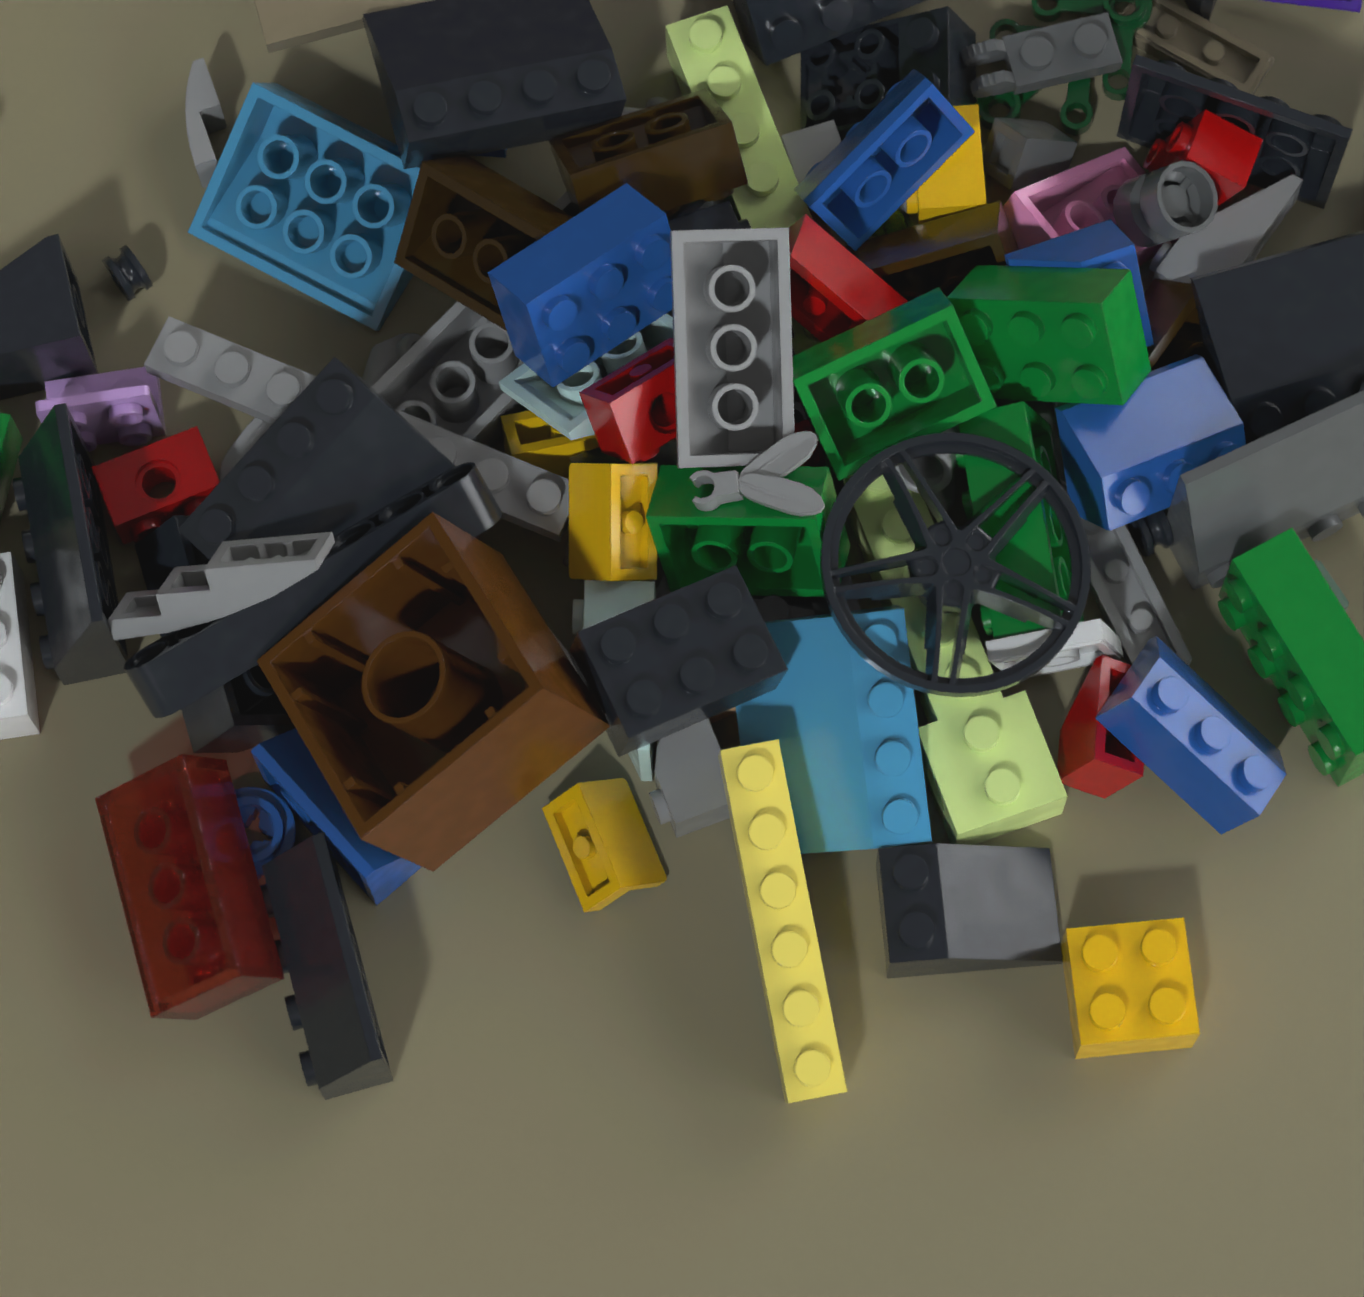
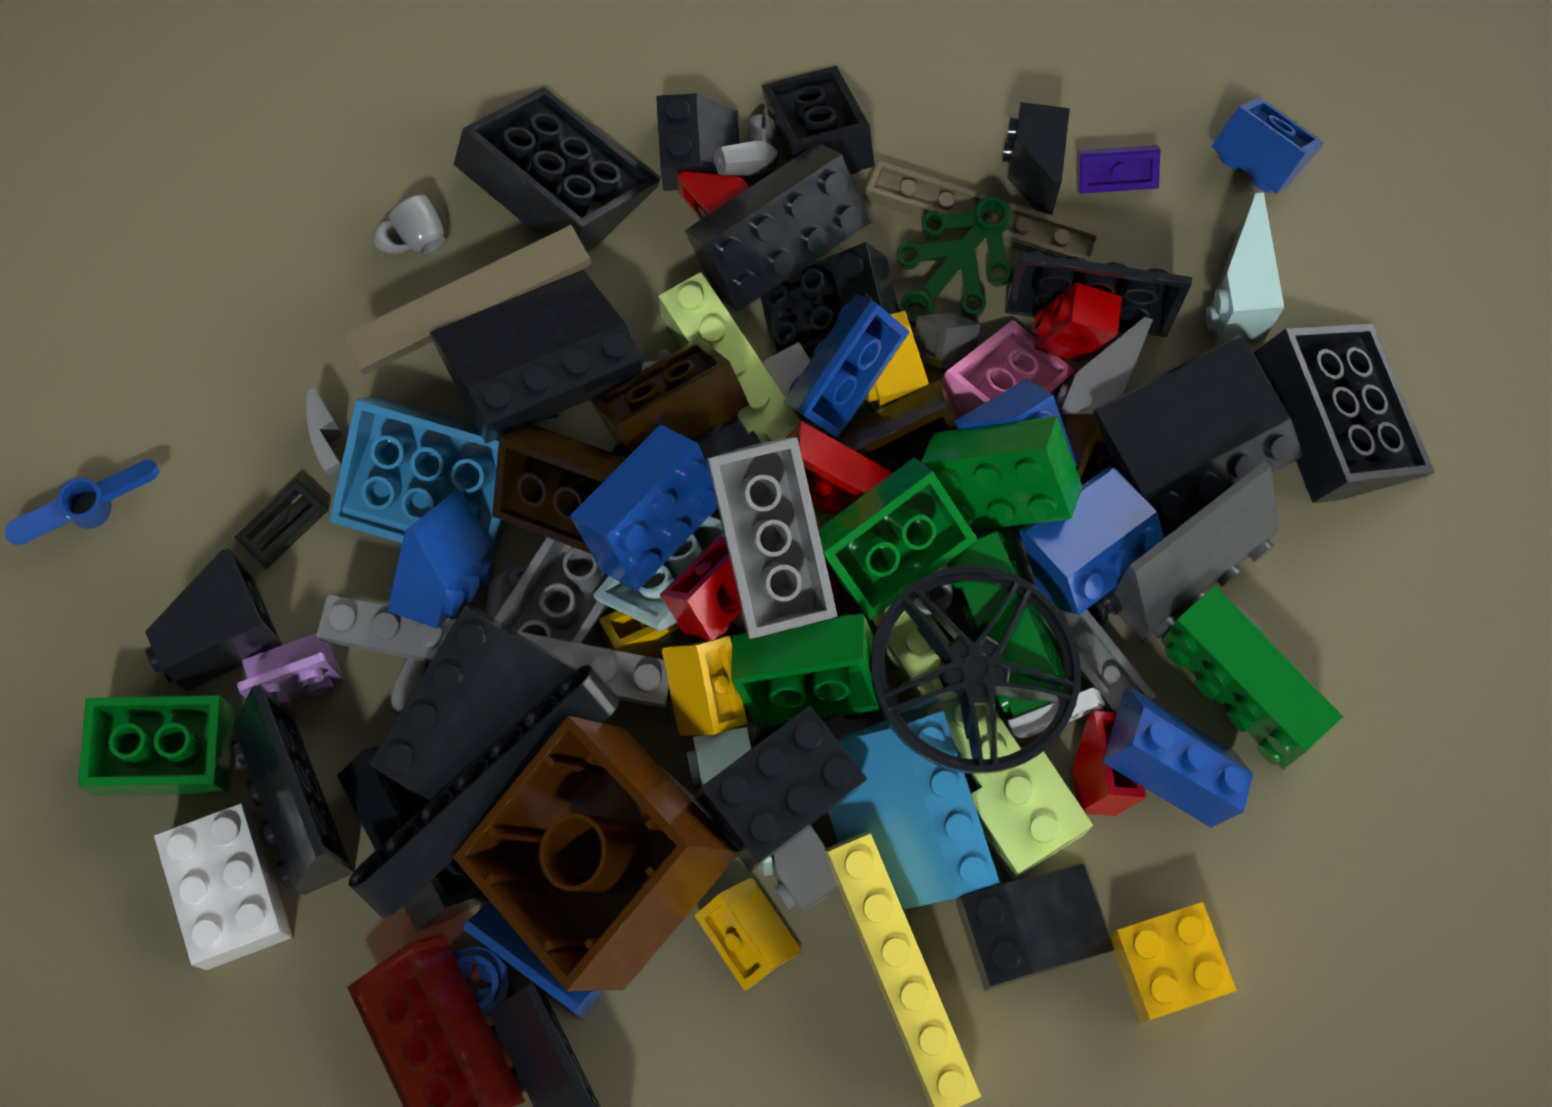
camera: 15 degrees left, 0 degrees up
(118, 205) = (290, 536): none -> pearl dark grey tile
(127, 273) = (288, 562): black bush -> none
(130, 478) = (322, 724): red brick -> none
(233, 579) = (424, 796): light grey slope -> none
(318, 305) = (441, 563): none -> blue slope
(765, 481) = (816, 634): light grey piece -> none
(1045, 56) = (944, 264): dark grey hinge -> none
(1165, 204) = (1060, 357): dark grey wheel -> none

